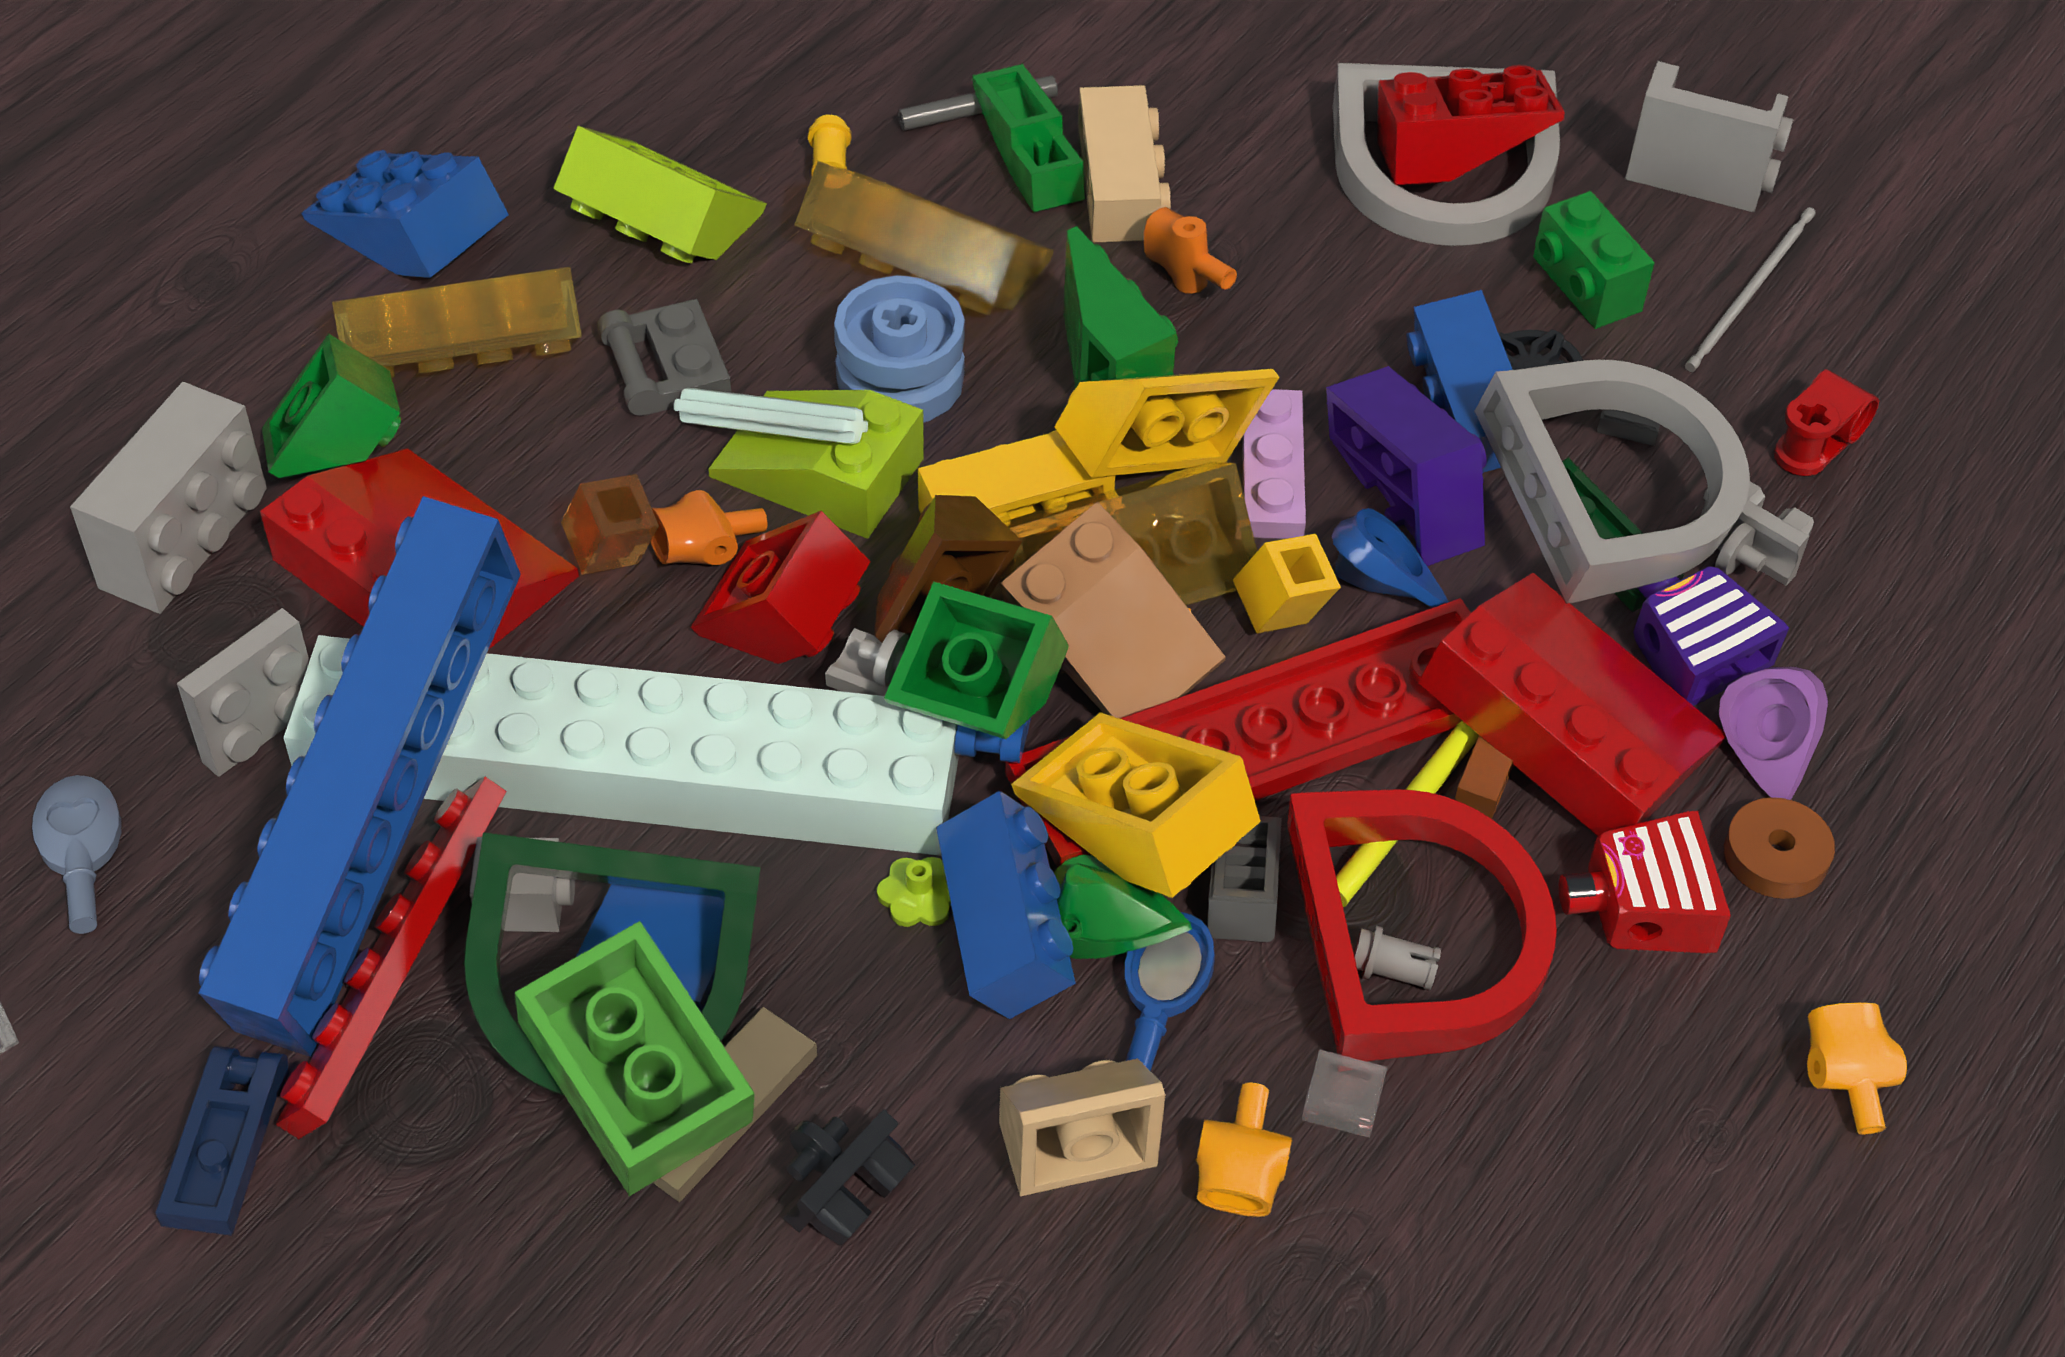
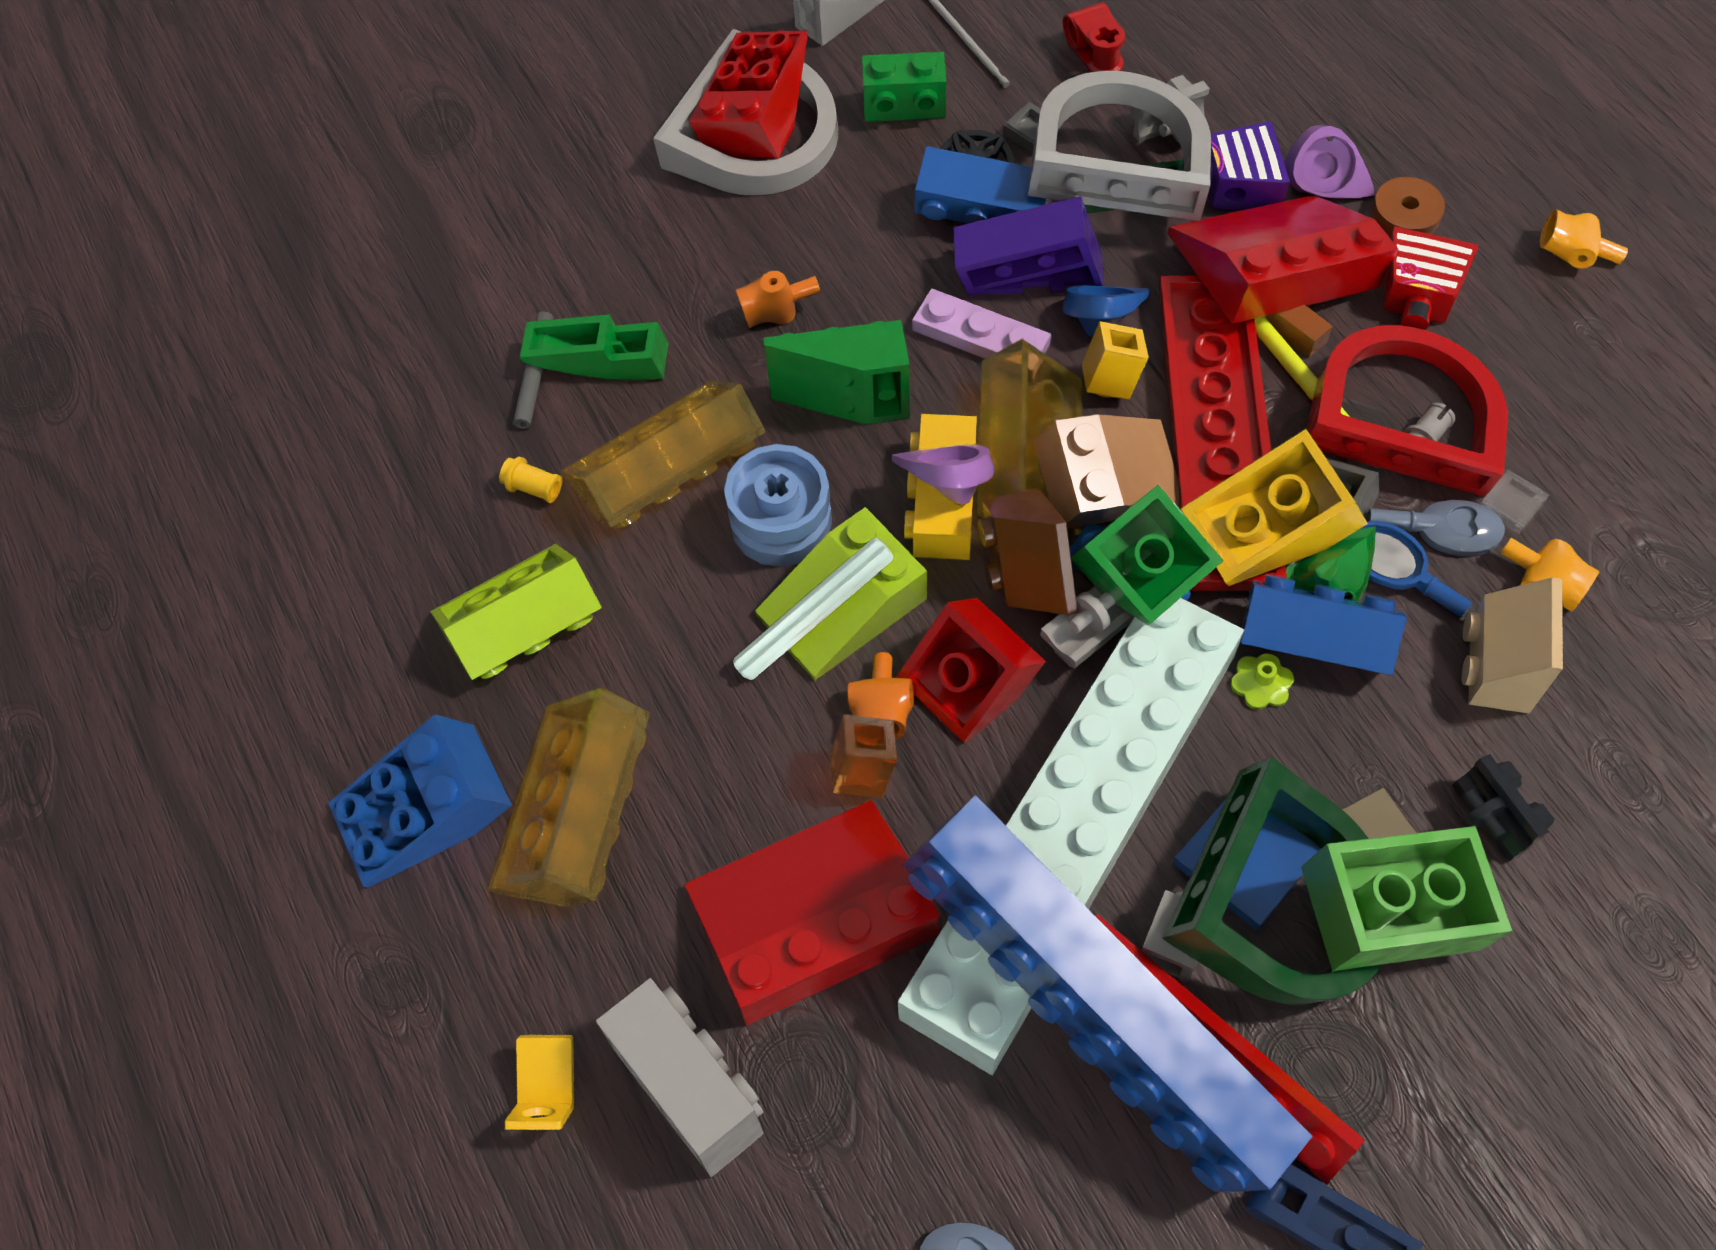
camera: 60 degrees left, 10 degrees up
(128, 416) = (543, 1082): none -> yellow bracket
(245, 692) = (938, 1090): light grey plate -> none
(331, 413) = (644, 925): green slope -> none
(681, 349) = (683, 653): dark grey plate -> none
(1006, 459) = (950, 469): none -> medium lavender piece
(1120, 161) = (686, 309): tan brick -> none
(1161, 420) = (949, 362): yellow slope -> none
(1260, 1030) = (1449, 526): none -> sand blue piece

